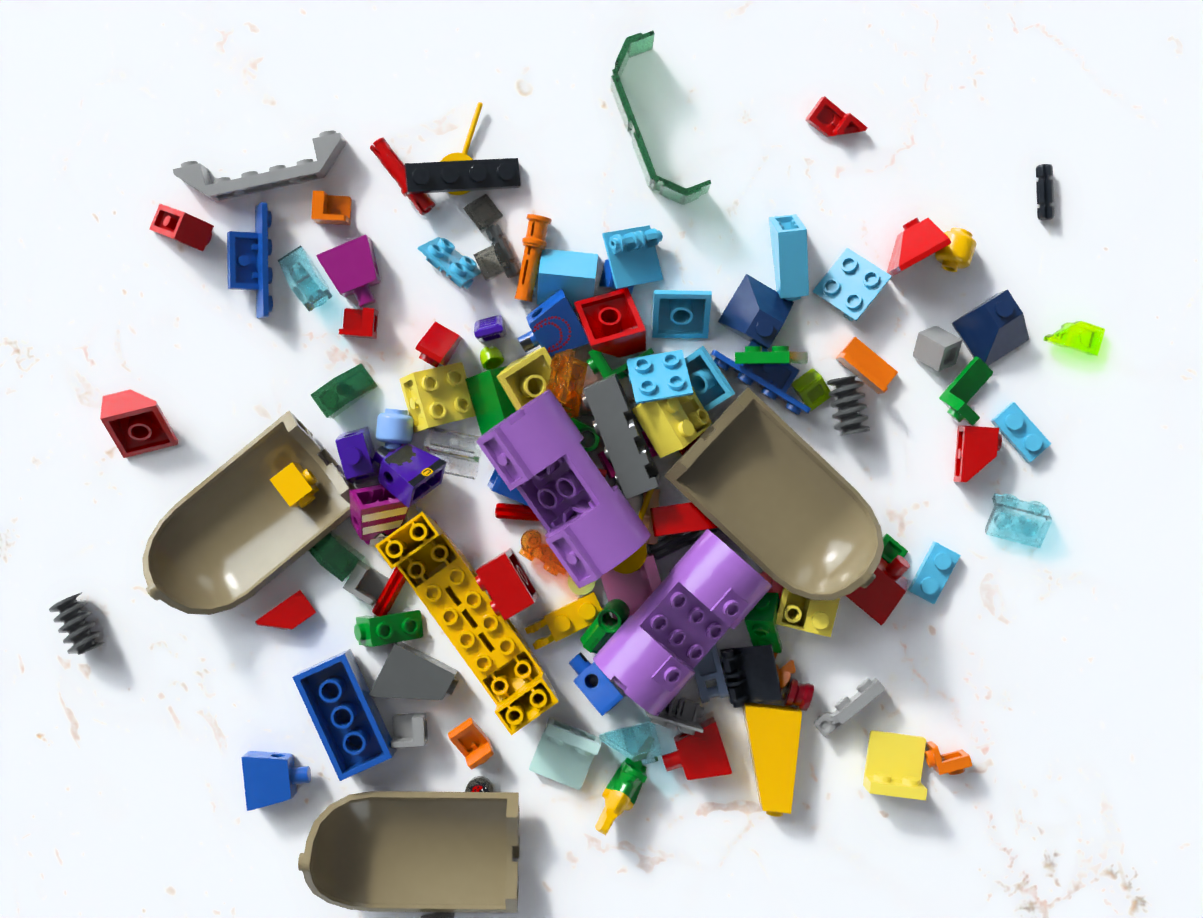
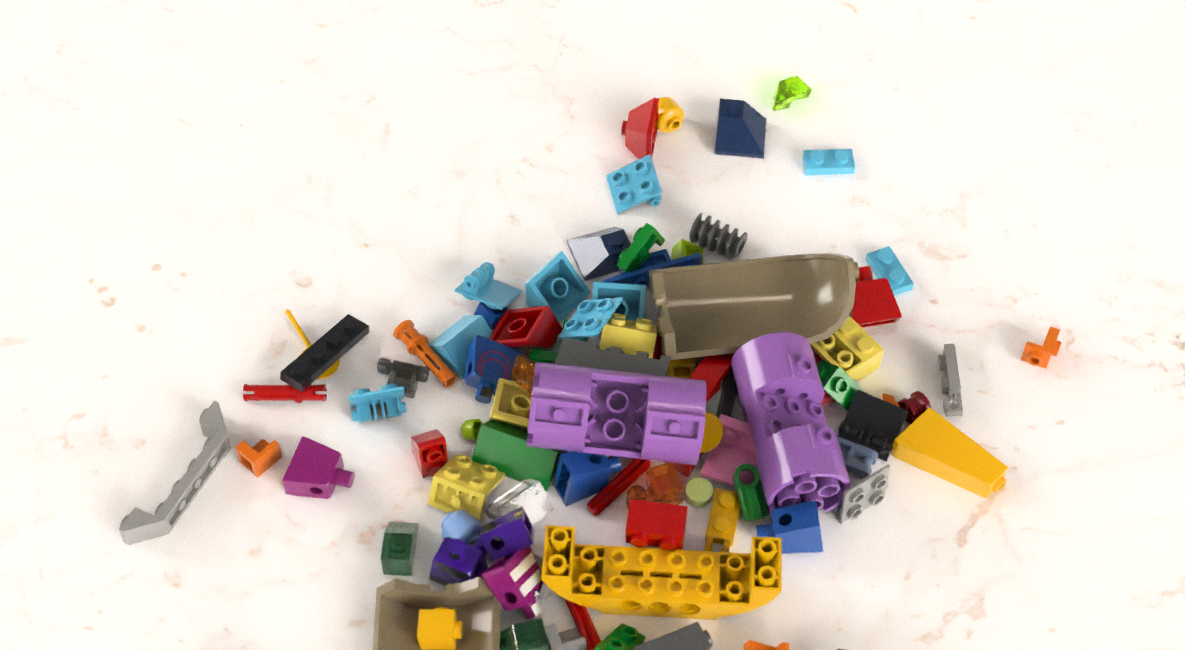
camera: 50 degrees left, 35 degrees down
(182, 227) = (163, 563): red slope -> none
(249, 260) = (240, 533): blue bracket -> none
(305, 278) = (290, 507): clear light blue slope -> none
(360, 323) = (362, 498): red panel -> none
(483, 212) = (363, 364): clear smoke slope -> none
(489, 329) = (452, 410): dark purple slope -> none
(565, 753) = (830, 595): light aqua bracket -> none
(621, 793) = (895, 576): animal -> none
(631, 47) = (413, 230): clear green windscreen -> none
(635, 742) = (862, 538): clear light blue slope -> none
(699, 754) = (908, 501): red torso -> none
(789, 256) = (580, 202): medium azure slope -> none
(832, 120) = (513, 128): red slope -> none
(867, 364) = (685, 214): orange panel -> none
(895, 765) = (1023, 384): light yellow bracket -> none
(937, 348) = (724, 167): light grey panel -> none
(964, 388) = (772, 173): green bracket -> none
(975, 450) = (816, 190): red slope -> none
(1018, 520) = (893, 199): clear light blue bracket -> none
(1045, 192) = (673, 52): black axle -> none

